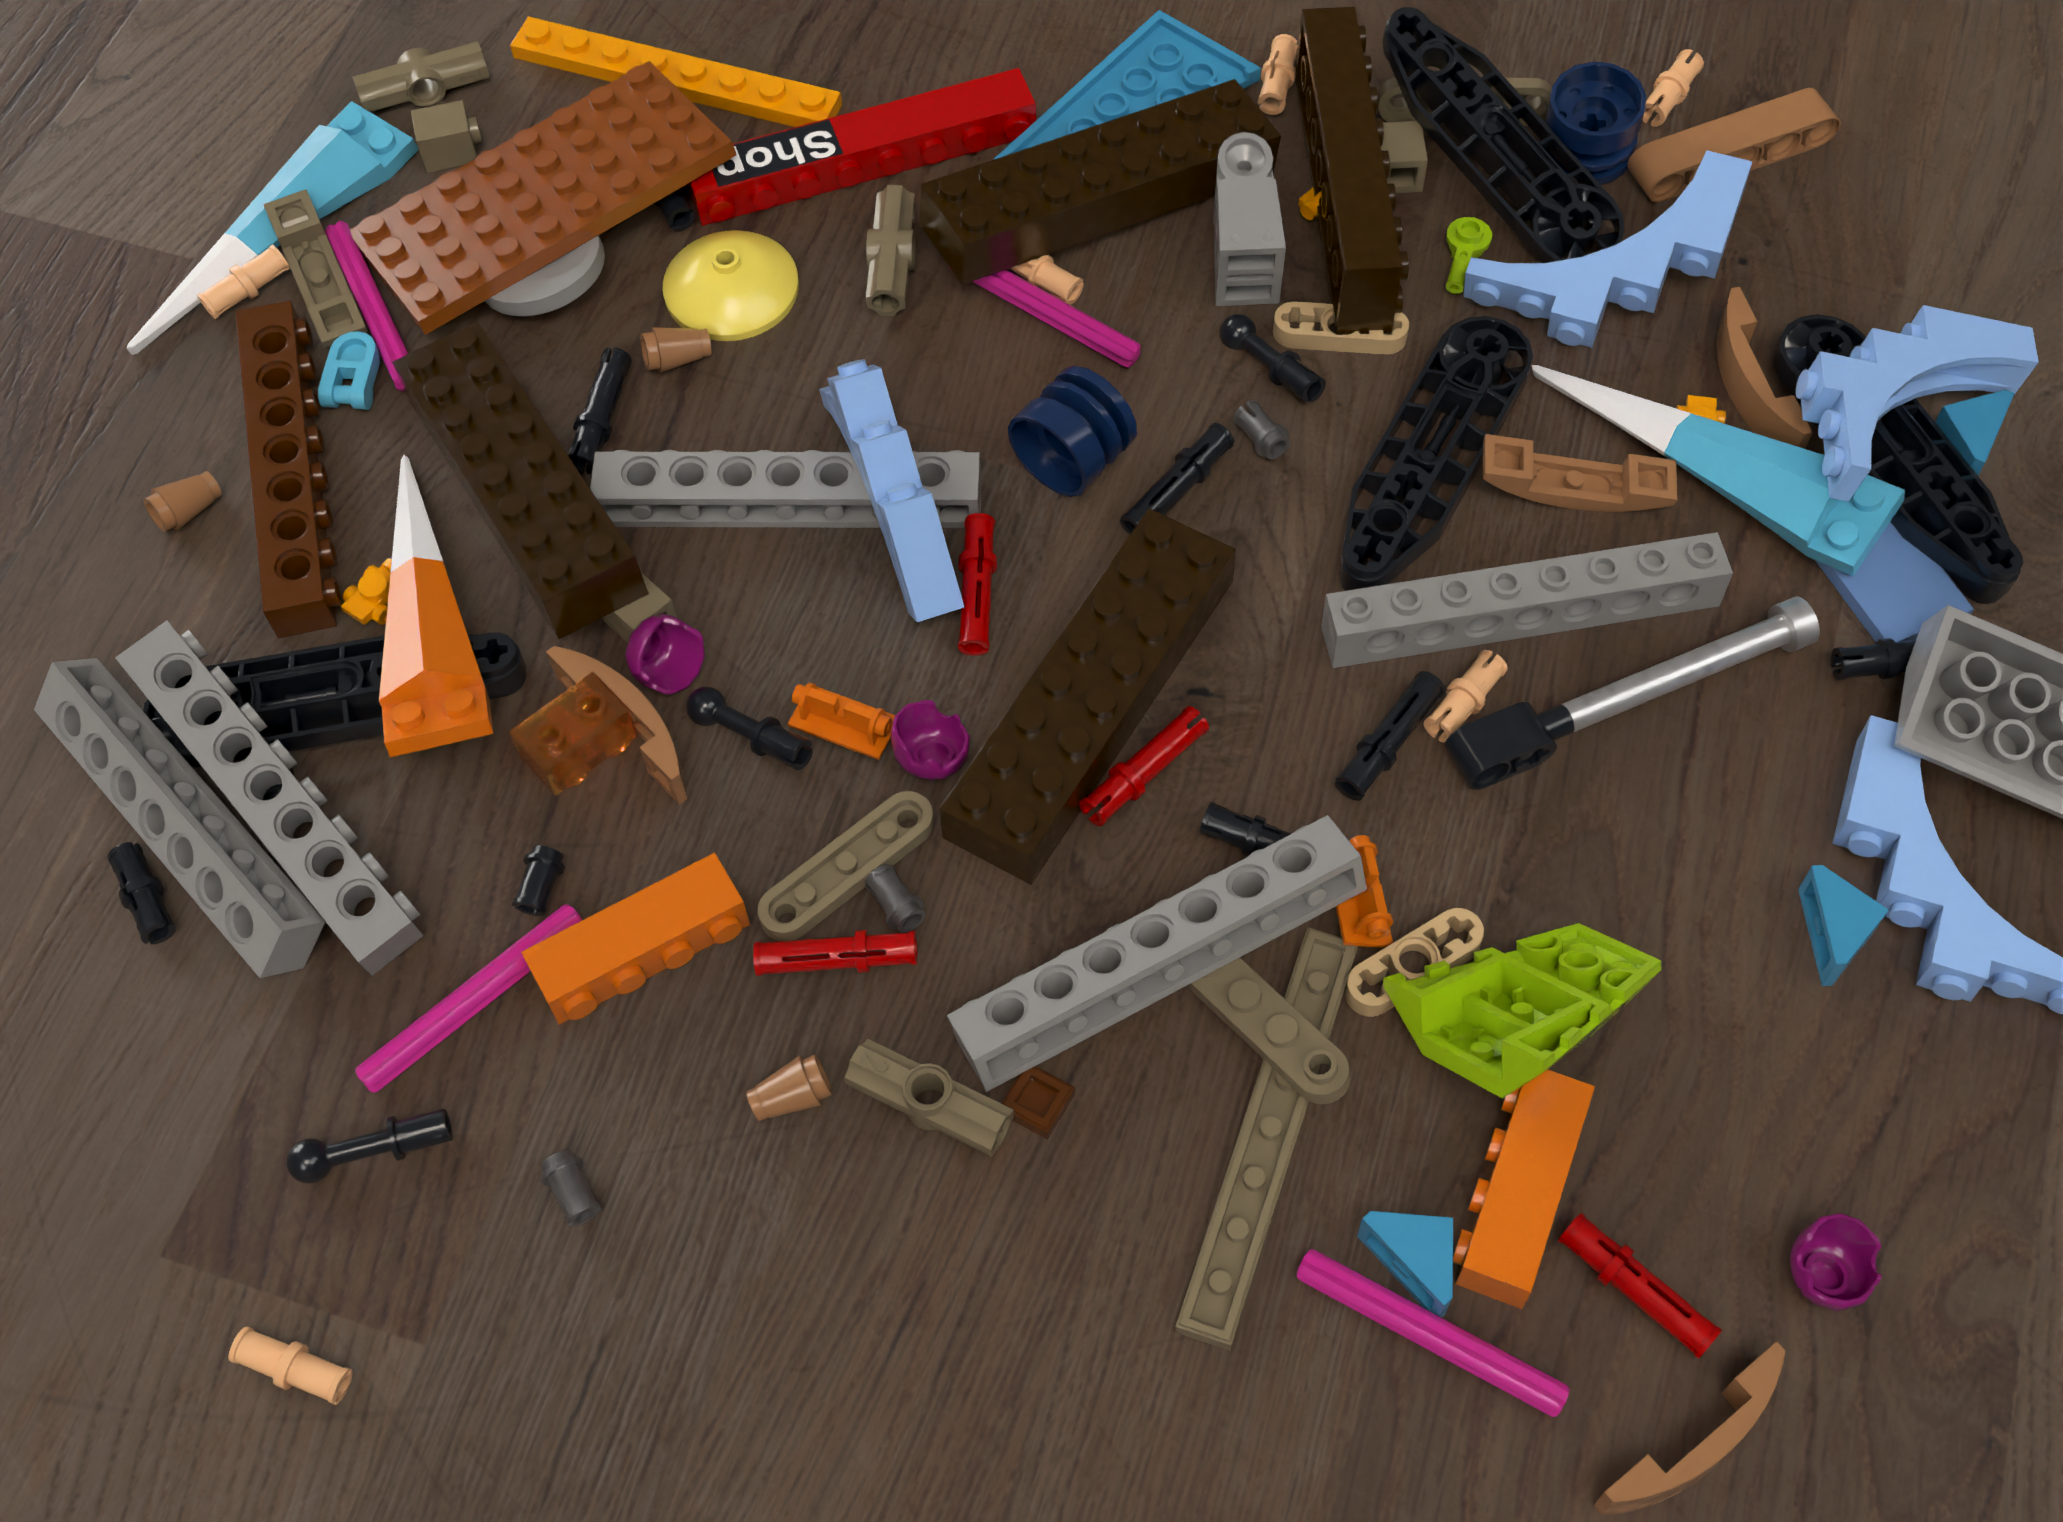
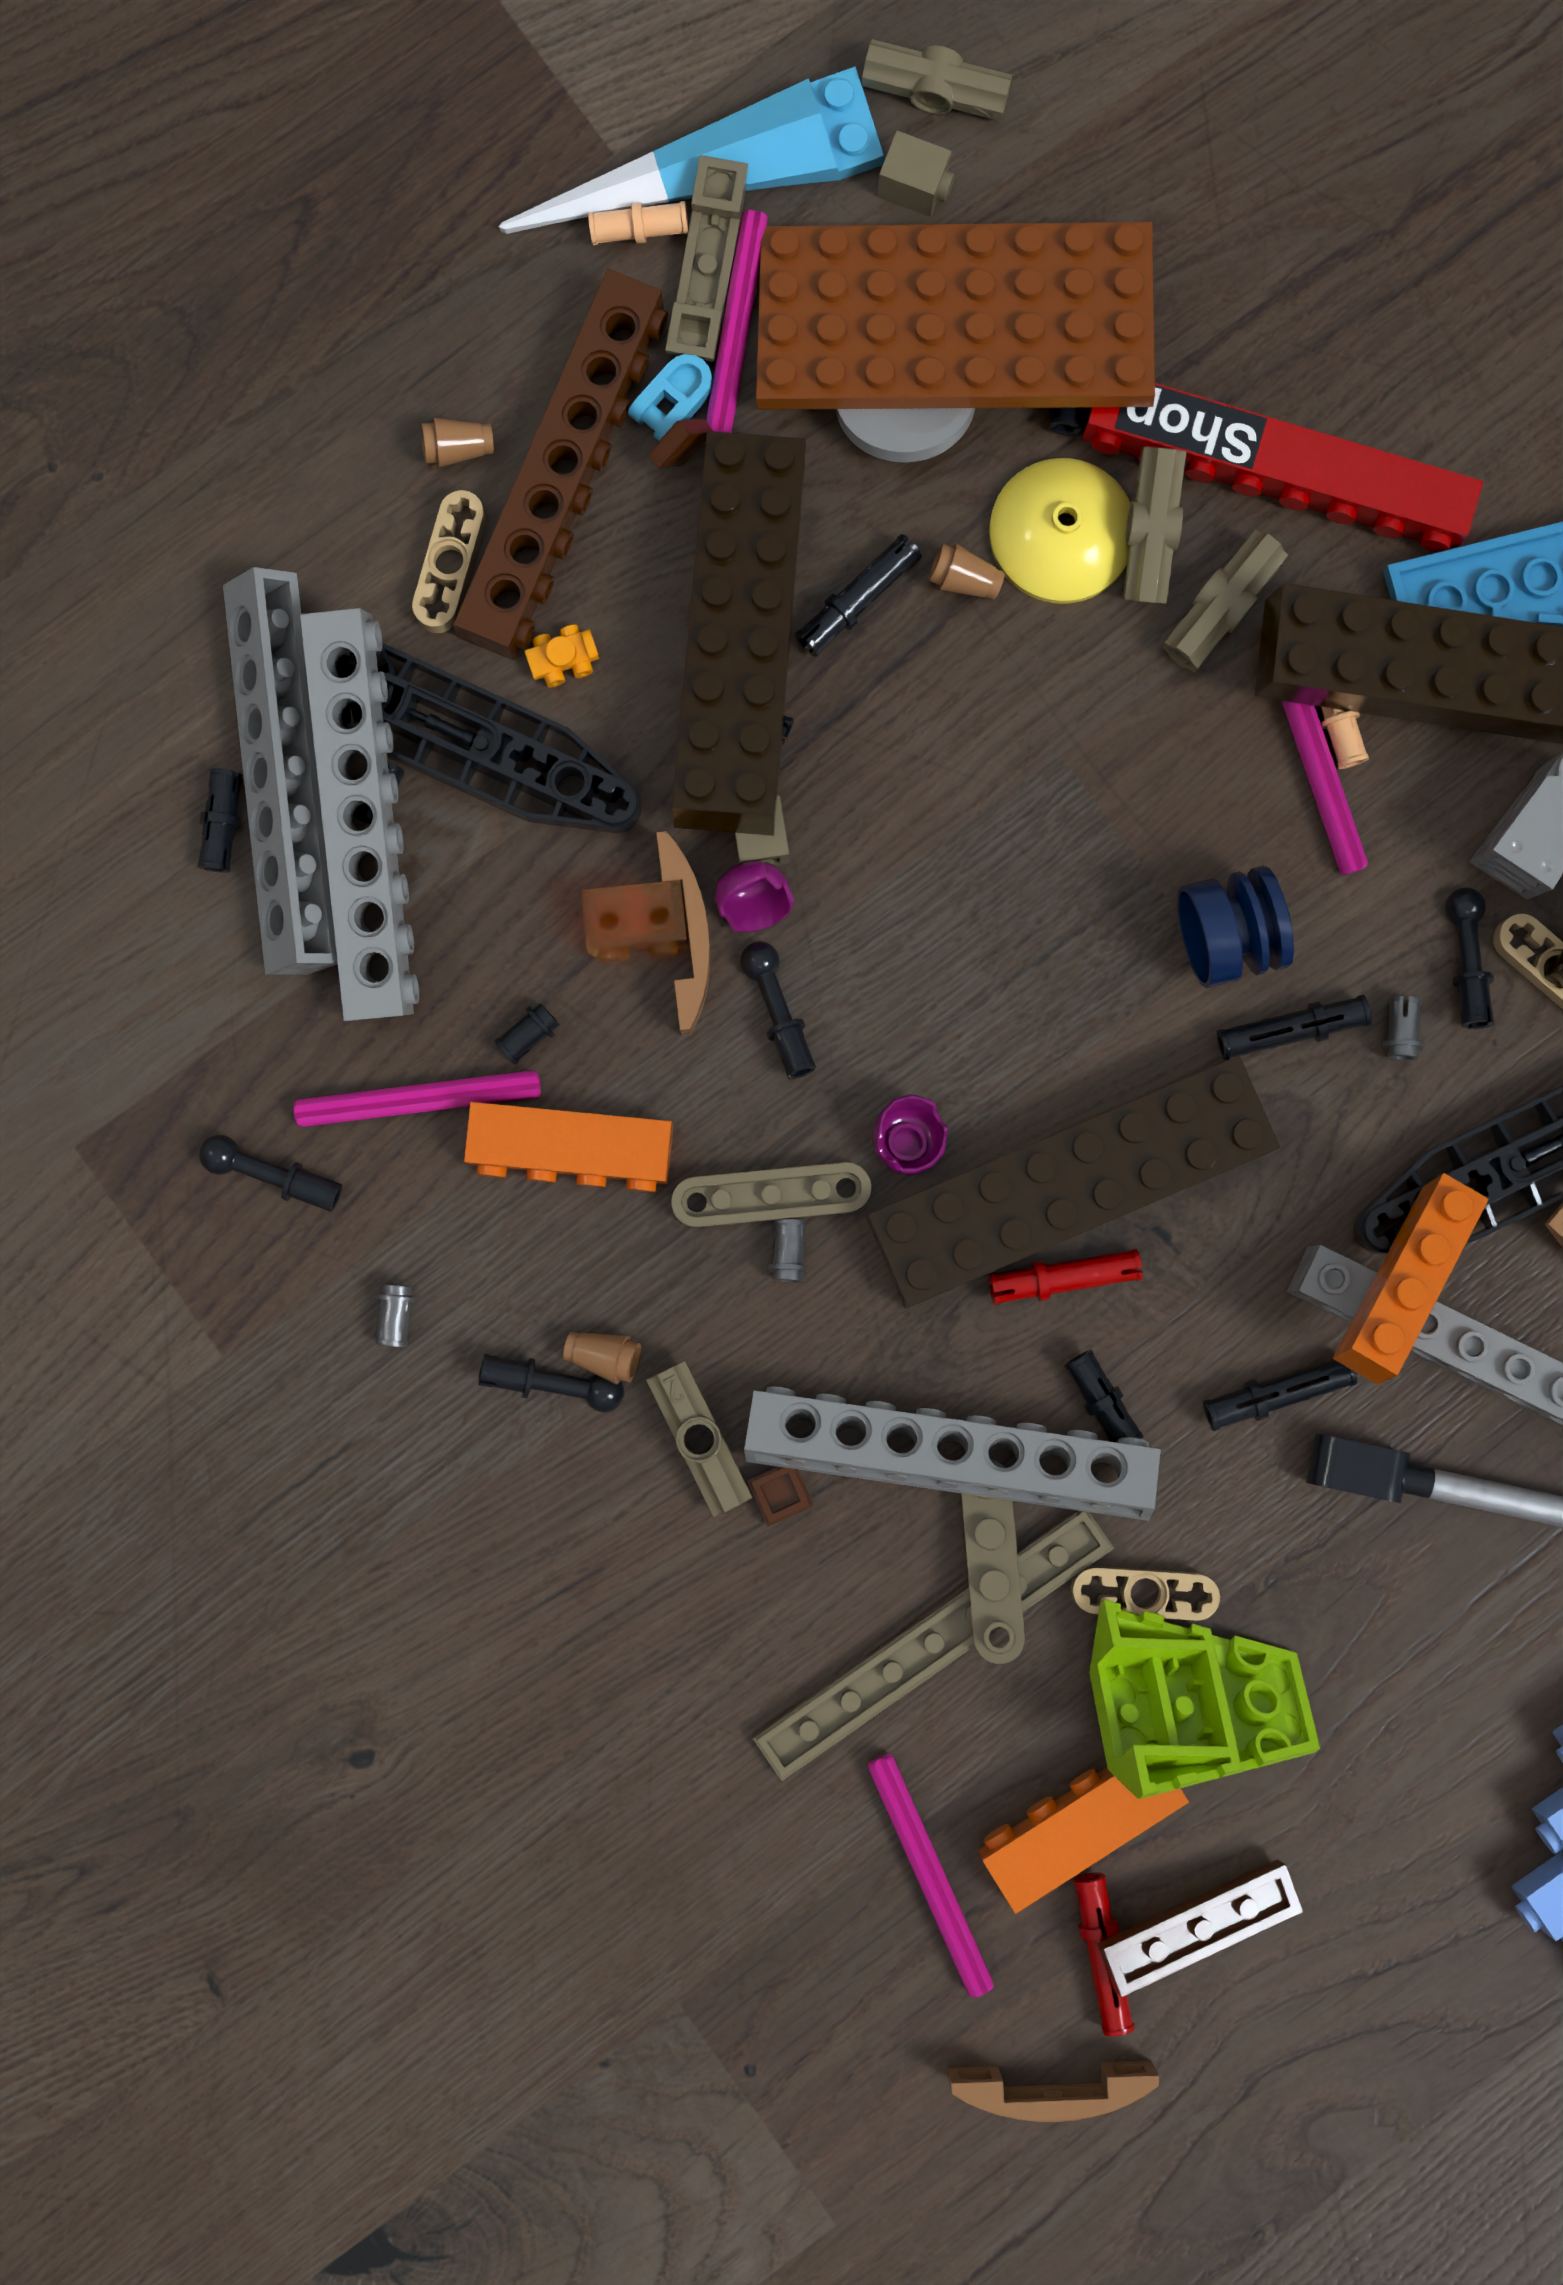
camera: 30 degrees right, 25 degrees up
(246, 599) = (446, 524): none -> tan beam
(290, 1365) = (117, 1310): light nougat pin -> none
(376, 390) = (680, 443): none -> reddish brown tile
(429, 670) = (550, 790): orange plate -> none
(697, 78) = (1177, 242): light orange plate -> none
(767, 488) = (1011, 855): light grey brick -> none
(797, 228) = (1154, 524): none -> dark tan piece
(812, 1128) = (522, 1377): none -> black pin
(841, 720) = (858, 1058): orange hinge -> none
(890, 475) = (1044, 868): light blue arch -> none
(896, 947) = (711, 1264): red pin -> none
(977, 565) = (1054, 1006): red pin -> none
(1365, 916) = (1134, 1537): orange hinge -> none
(1414, 558) = (1410, 1279): none -> orange brick
(1415, 1253) = (964, 1818): dark azure slope -> none
(1465, 695) = (1369, 1401): light nougat pin -> none
(1696, 1194) = (1199, 1927): none -> plate
(1836, 1262) = (1253, 2047): magenta hair -> none
(1837, 920) = (1490, 1807): dark azure slope -> none

